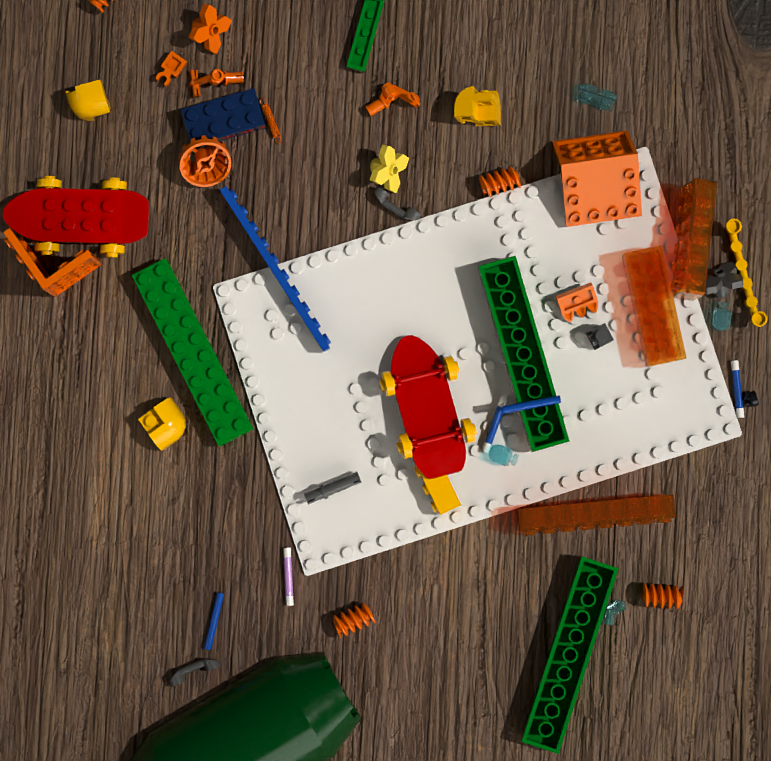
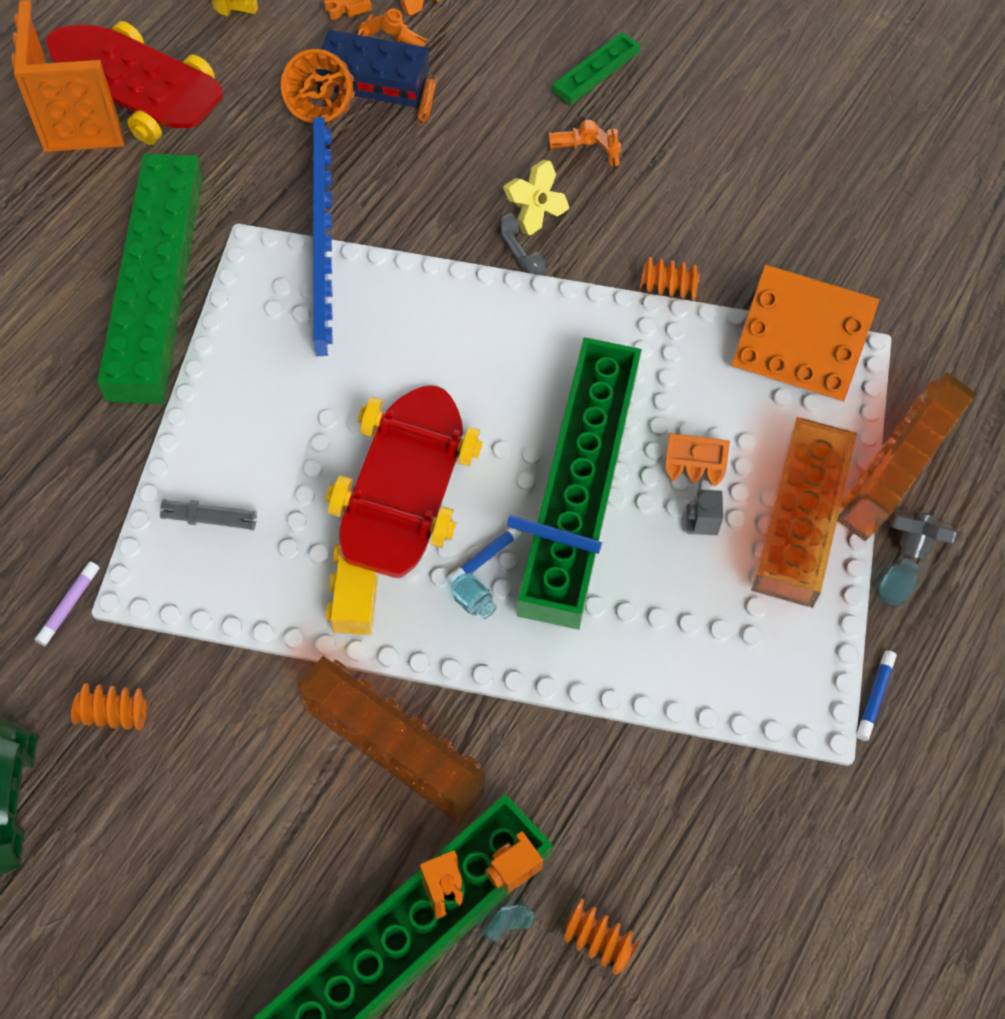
camera: 30 degrees right, 25 degrees down
(164, 423) = (54, 330): yellow brick -> none
(478, 107) = (689, 186): yellow brick -> none
(508, 558) = (392, 738): none -> clear orange brick
(579, 619) = (441, 877): none -> orange hinge
(599, 513) = (564, 747): clear orange brick -> none
(604, 100) = (850, 253): clear light blue hinge -> none
(607, 591) = (514, 864): none -> orange brick
(752, 399) = (894, 717): black hinge -> none
(758, 318) = (957, 601): yellow bar -> none

